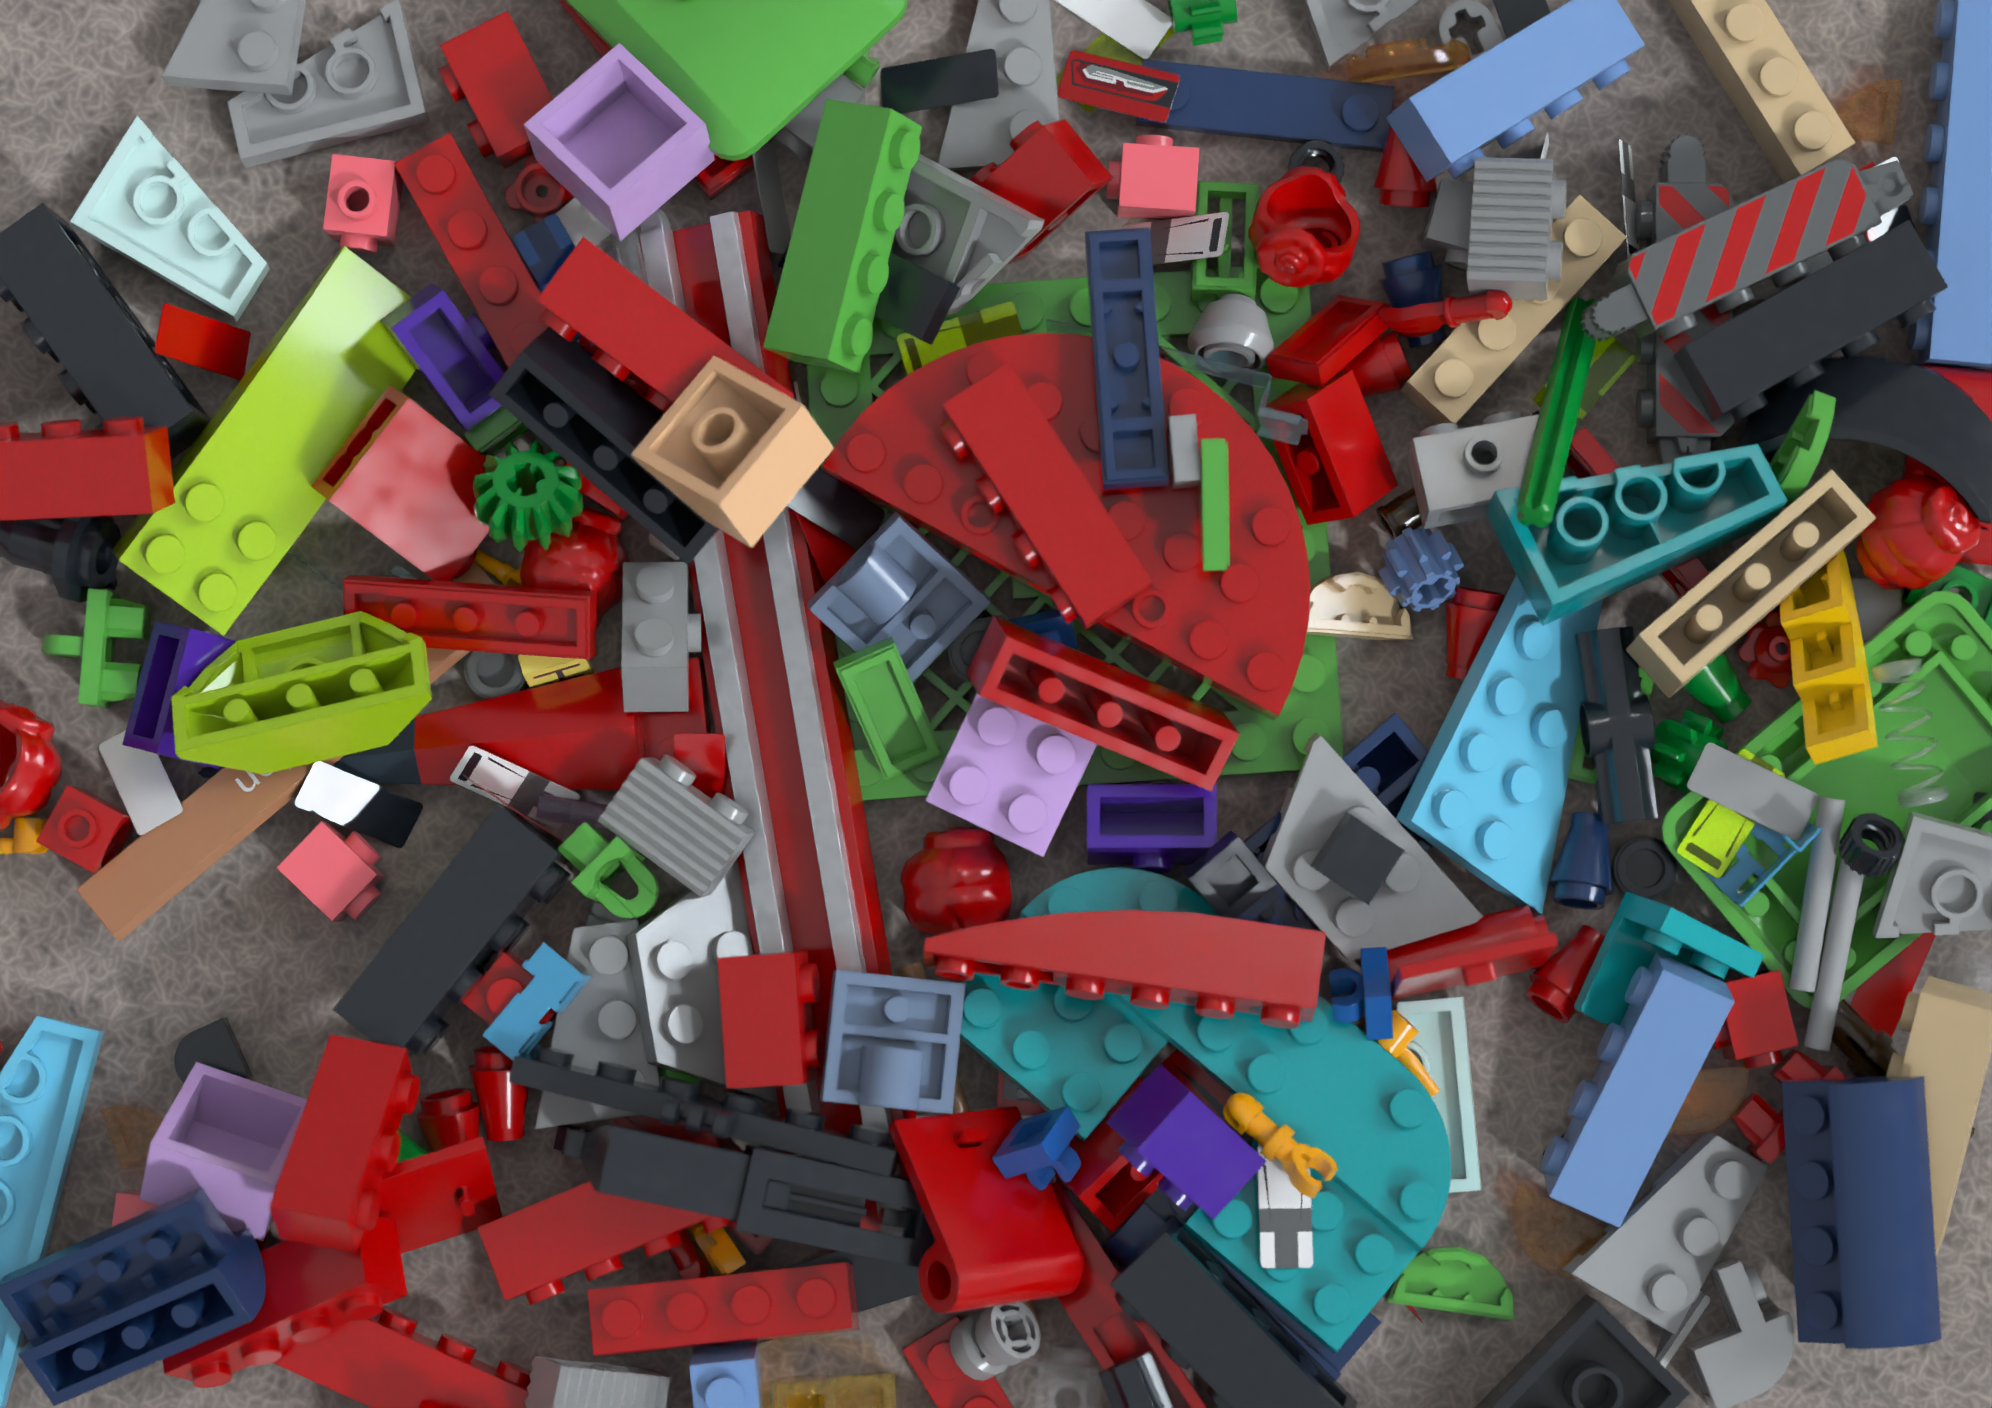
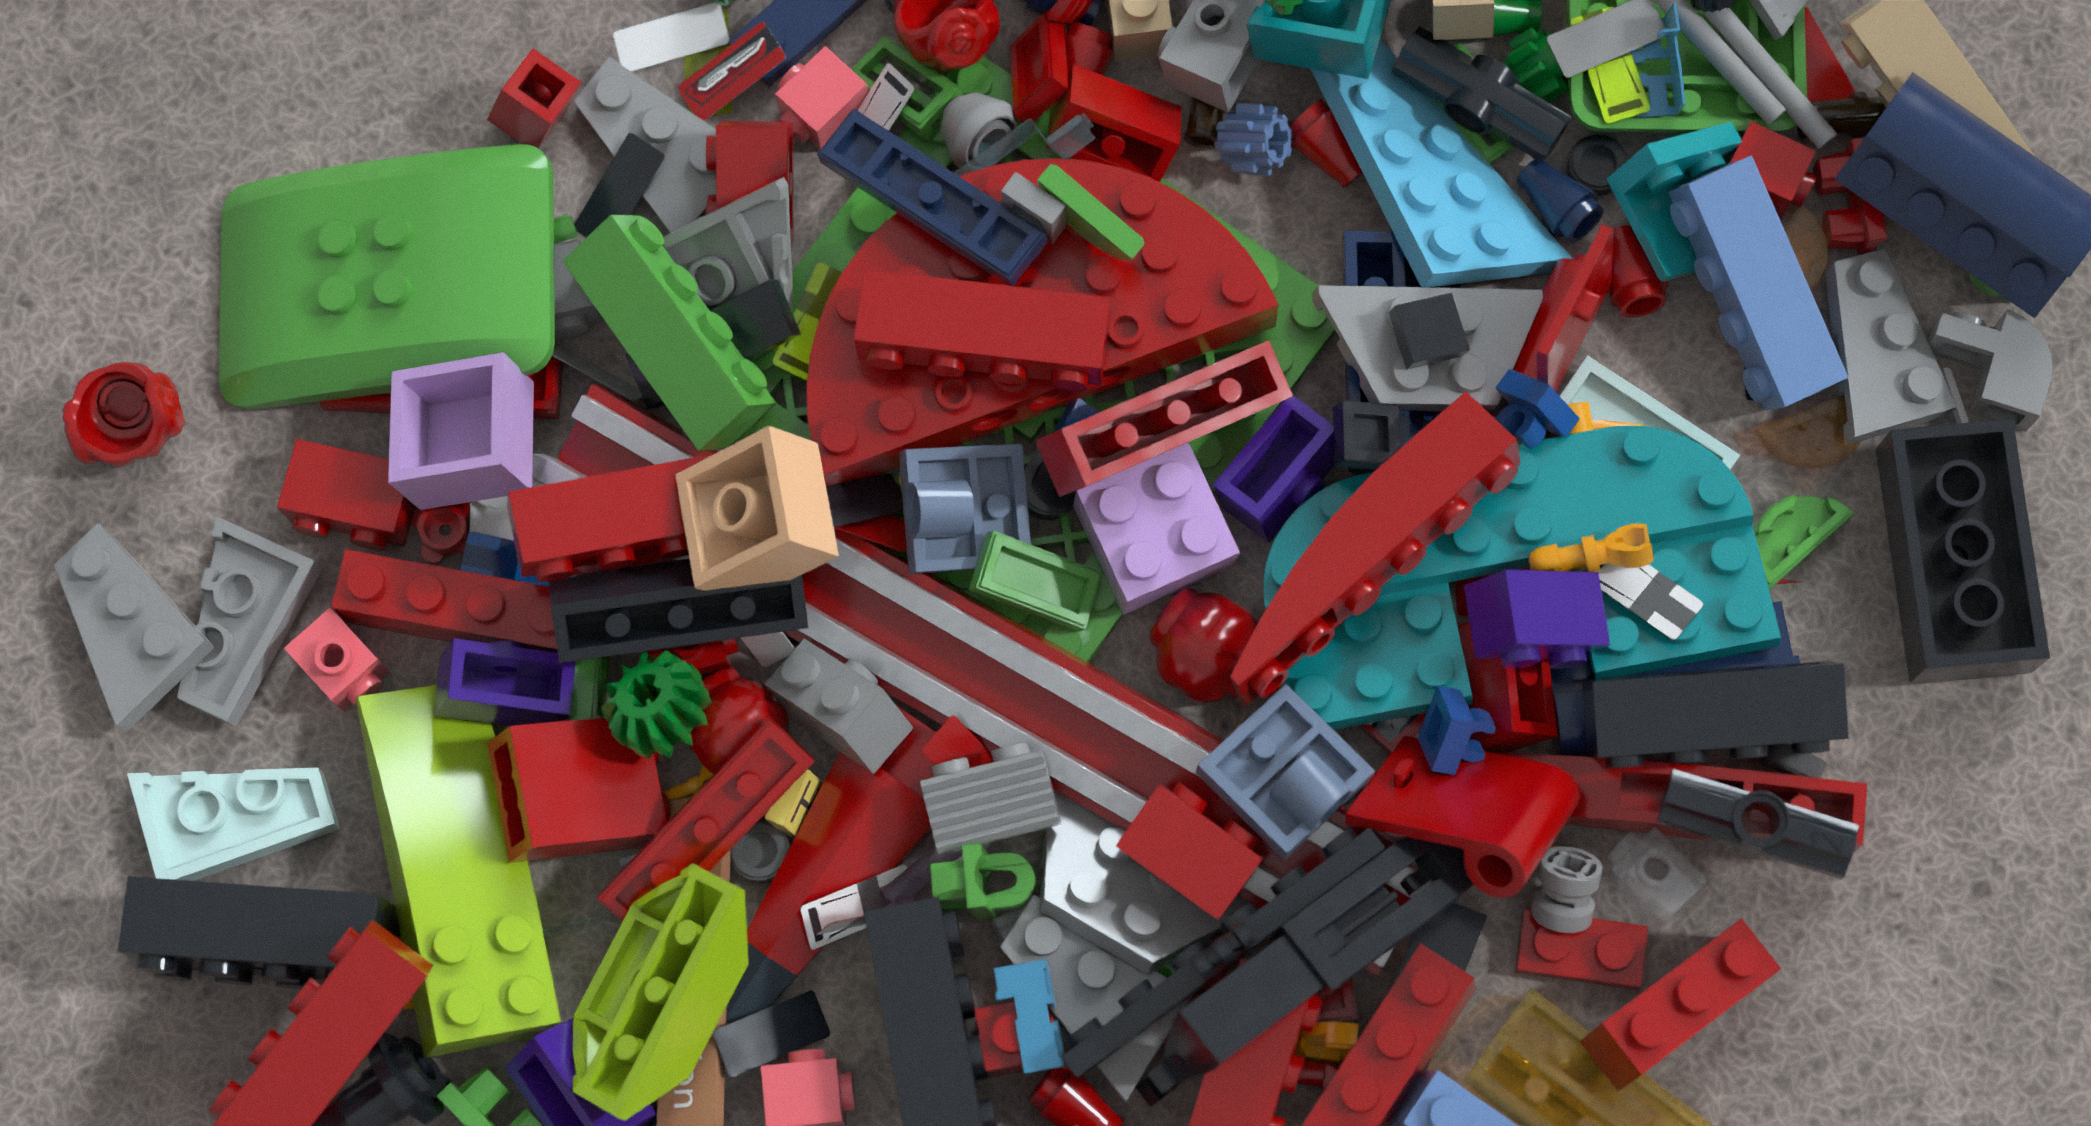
camera: 45 degrees left, 10 degrees down
(202, 342) = (333, 859): red sticker -> none
(1357, 608) = (1249, 203): tan tile -> none

